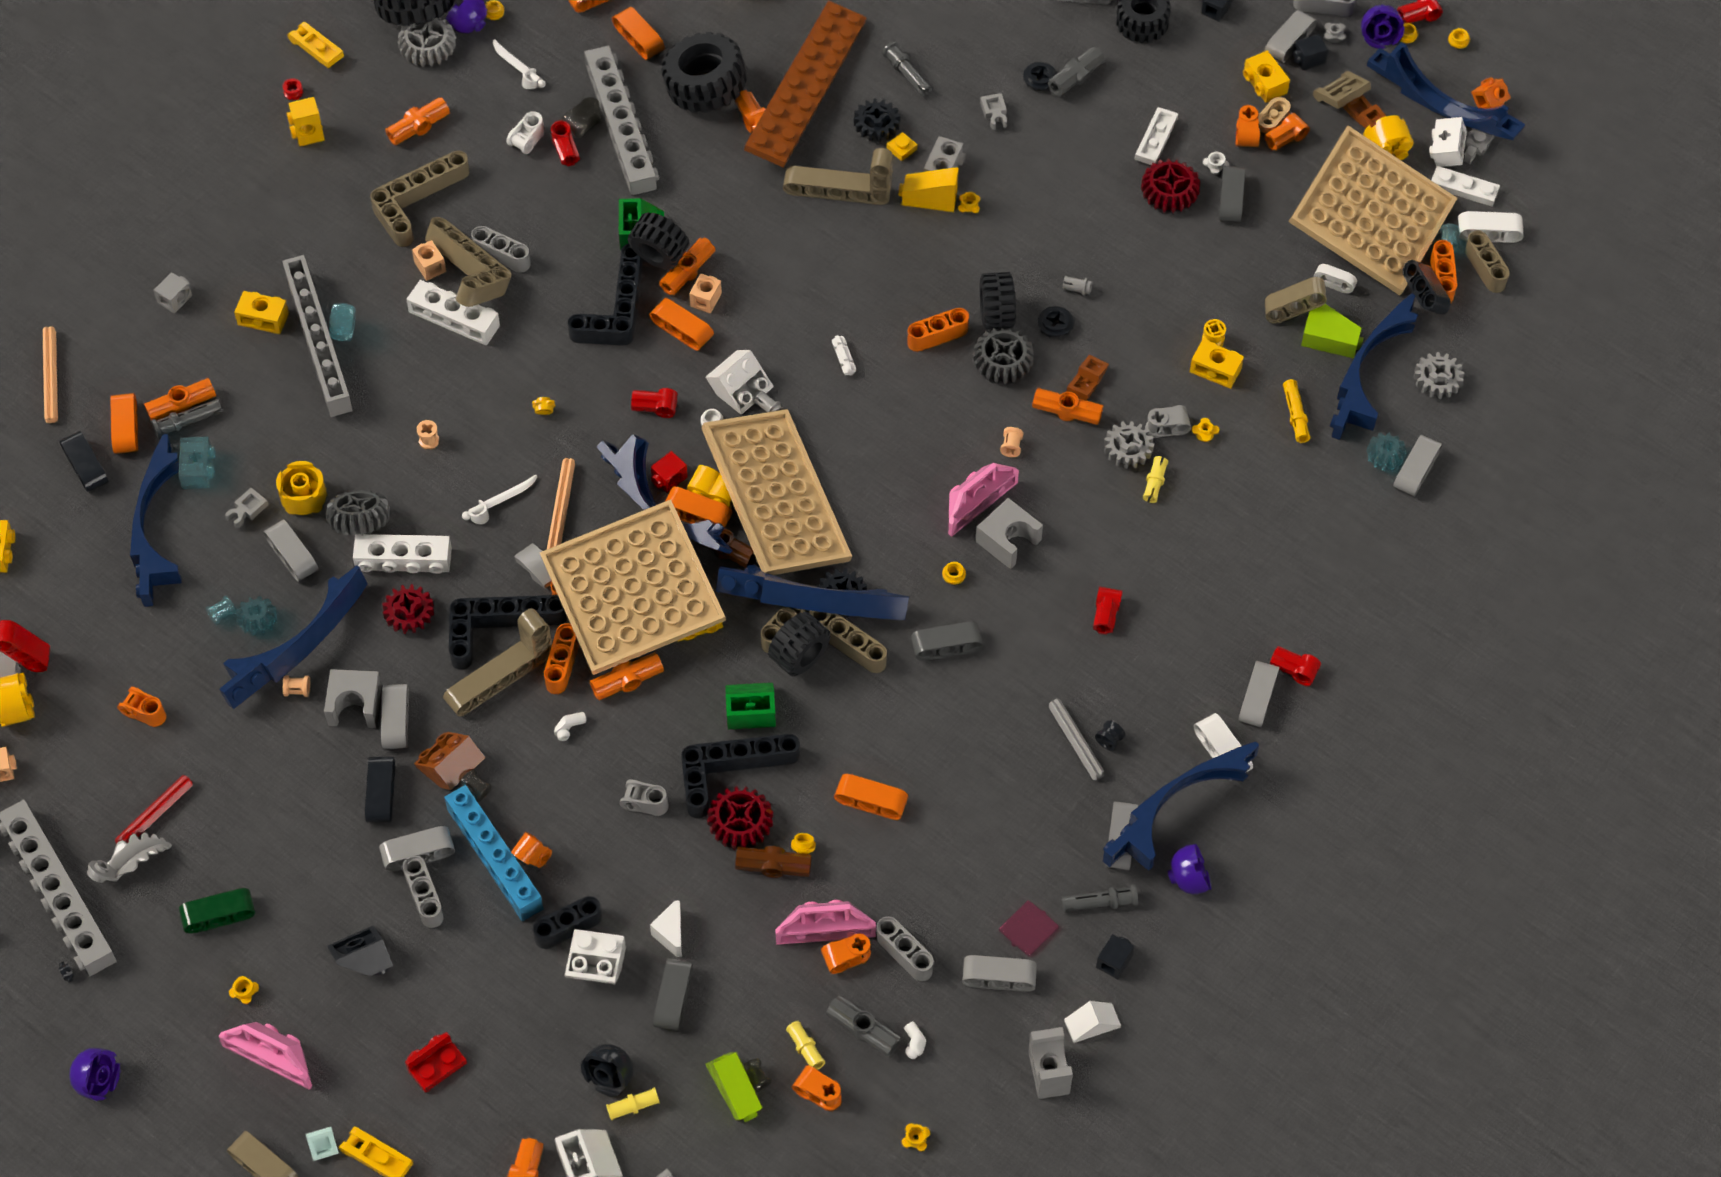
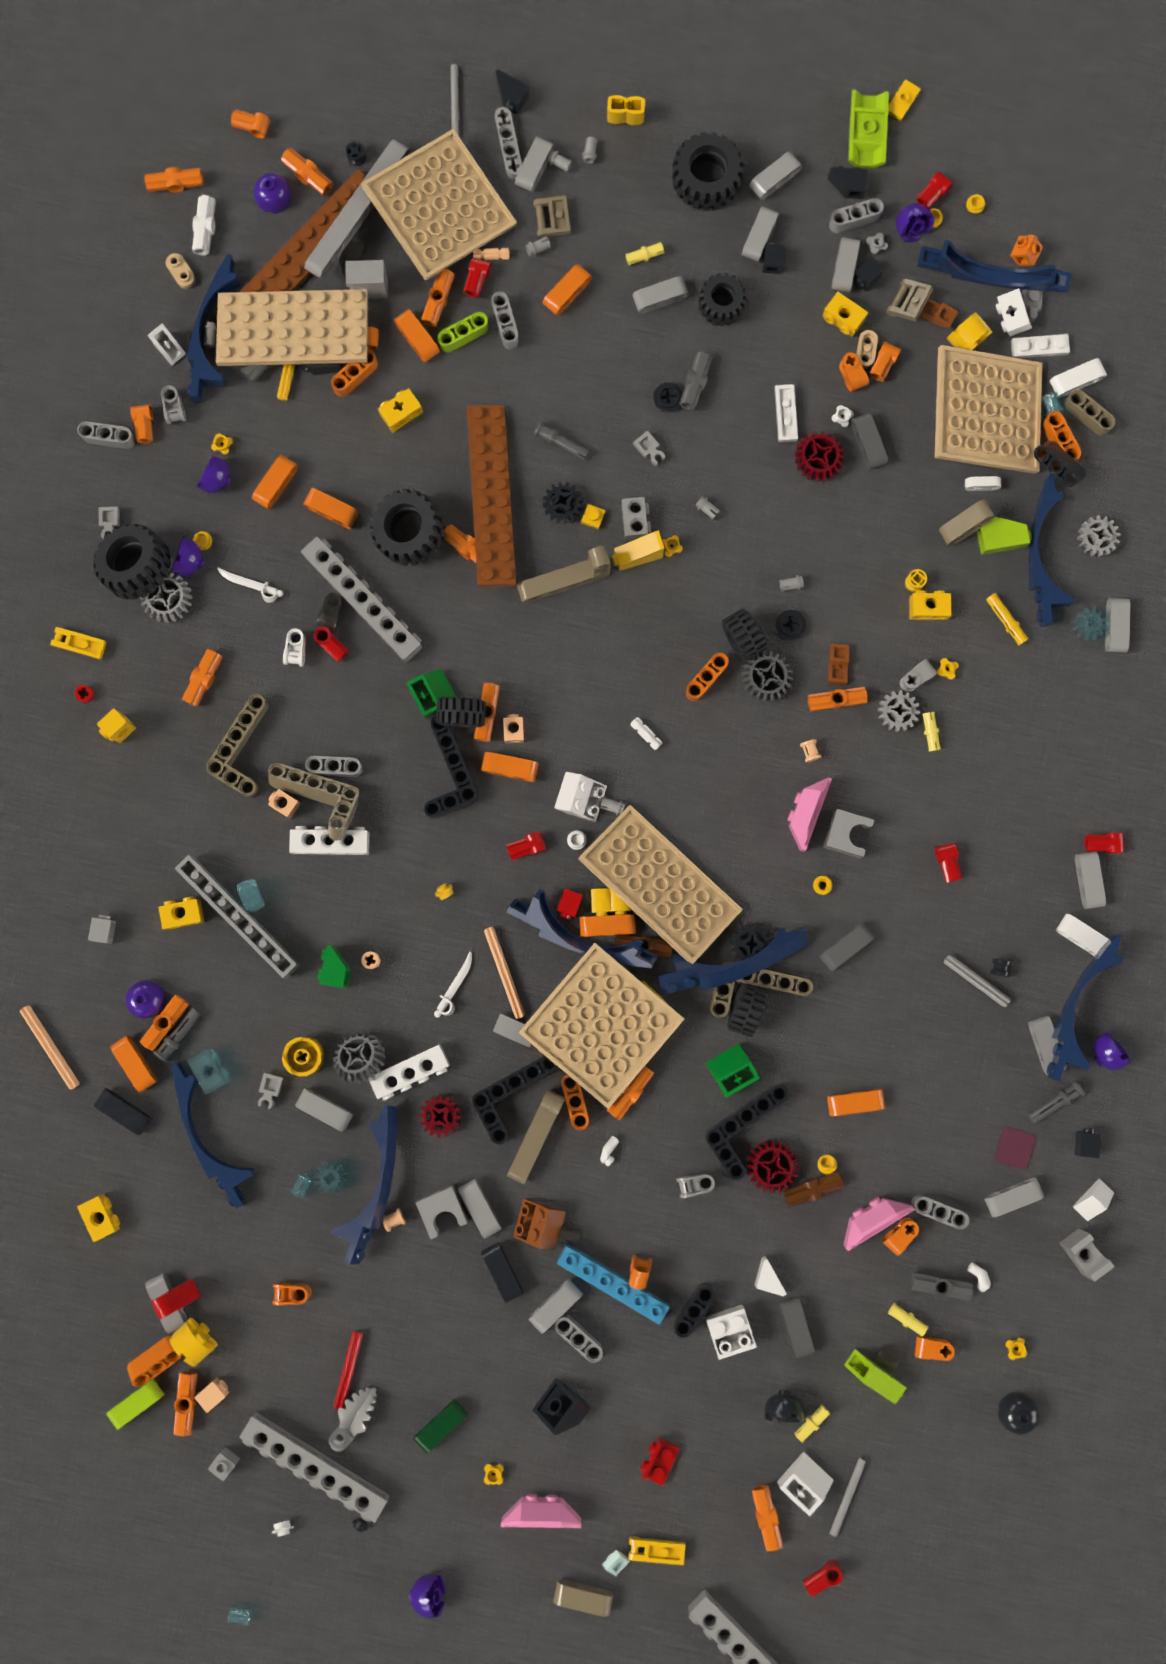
camera: 25 degrees left, 25 degrees up
(174, 369) = (145, 999): none -> dark purple cylinder
(383, 422) = (335, 968): none -> green slope
(1023, 180) = (706, 506): none -> light grey pin

